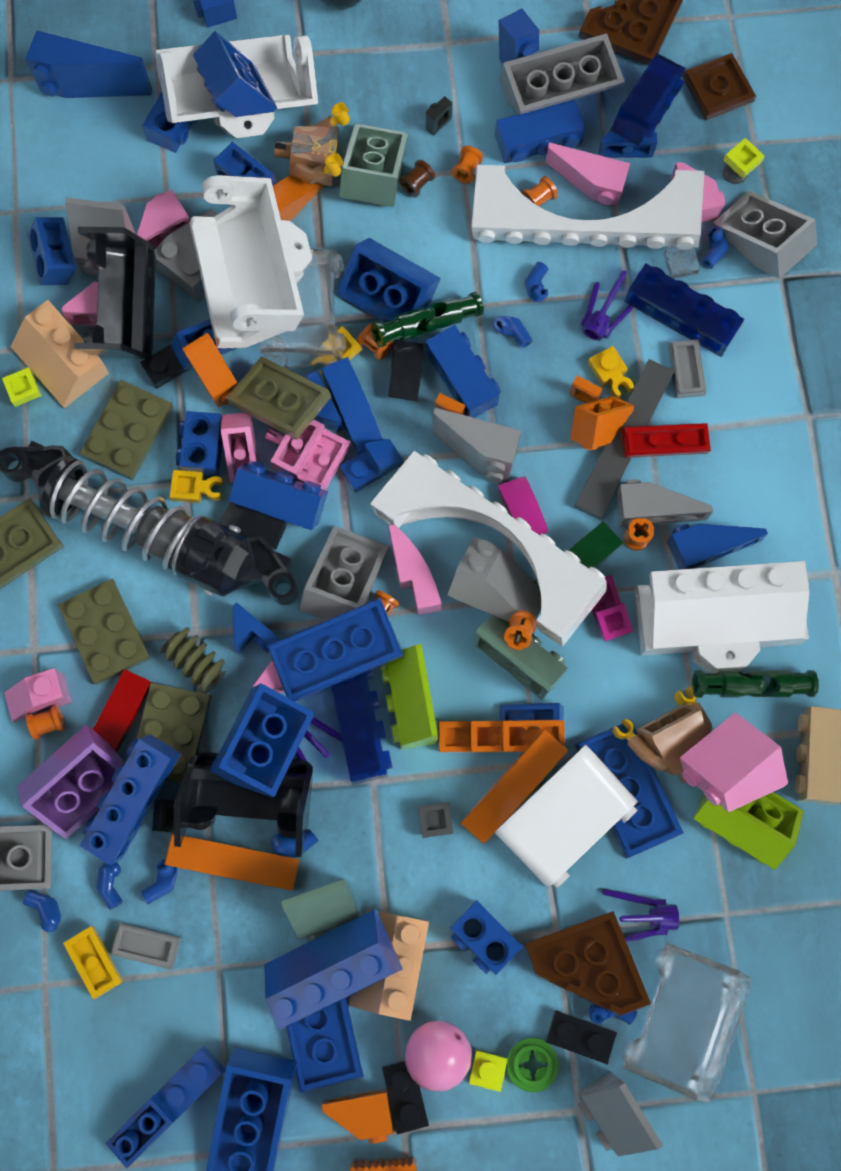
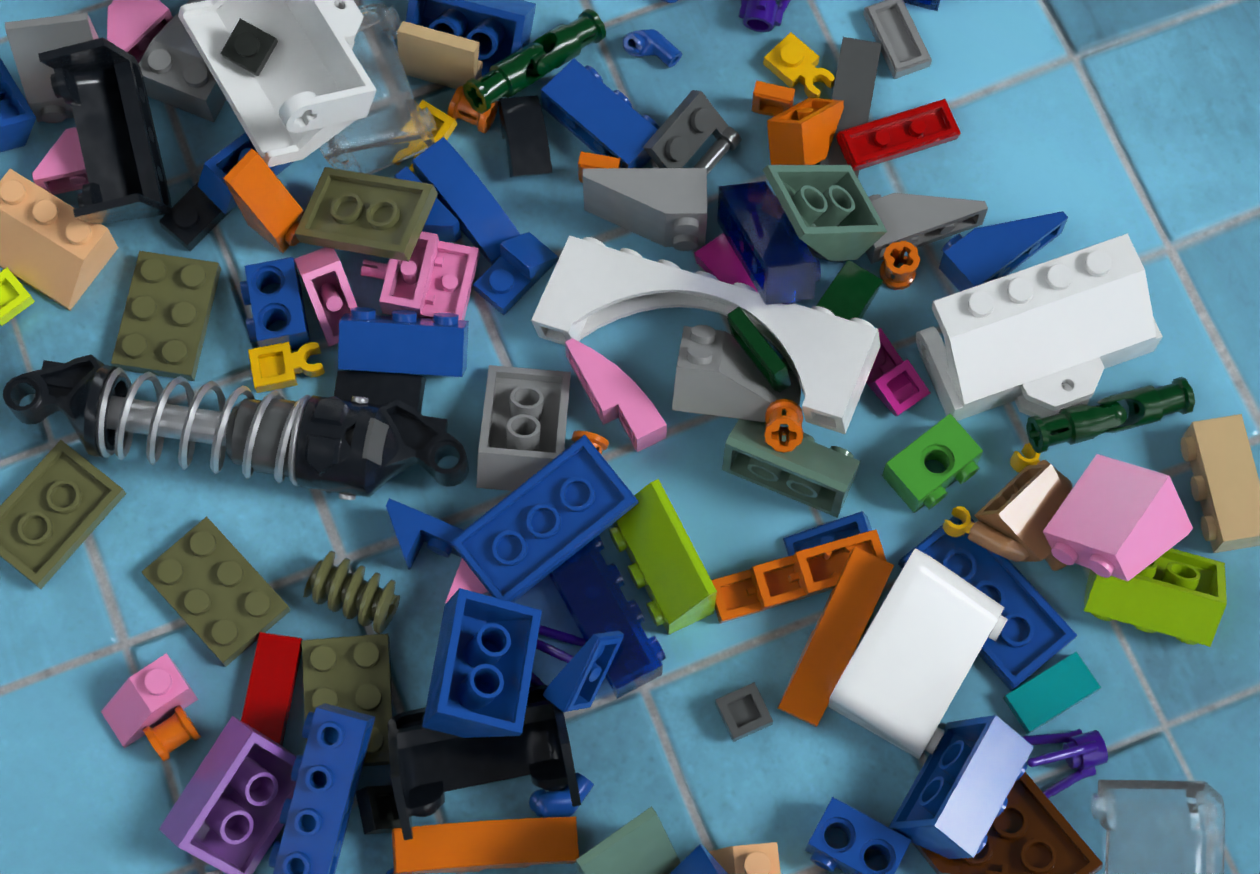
camera: 15 degrees left, 5 degrees down
(229, 258) = (249, 47): none -> pearl dark grey plate
(329, 767) = (583, 675): none -> blue slope
(360, 298) = (438, 55): none -> tan slope
(518, 398) = (686, 132): none -> dark grey plate
(519, 570) = (758, 350): none -> dark green tile
(549, 496) = (767, 243): none -> clear blue brick
(569, 920) = (963, 787): none -> slope
(596, 482) = (827, 208): none -> sand green slope
(632, 670) = (943, 442): none -> bright green brick
(653, 868) = (1051, 692): none -> teal tile

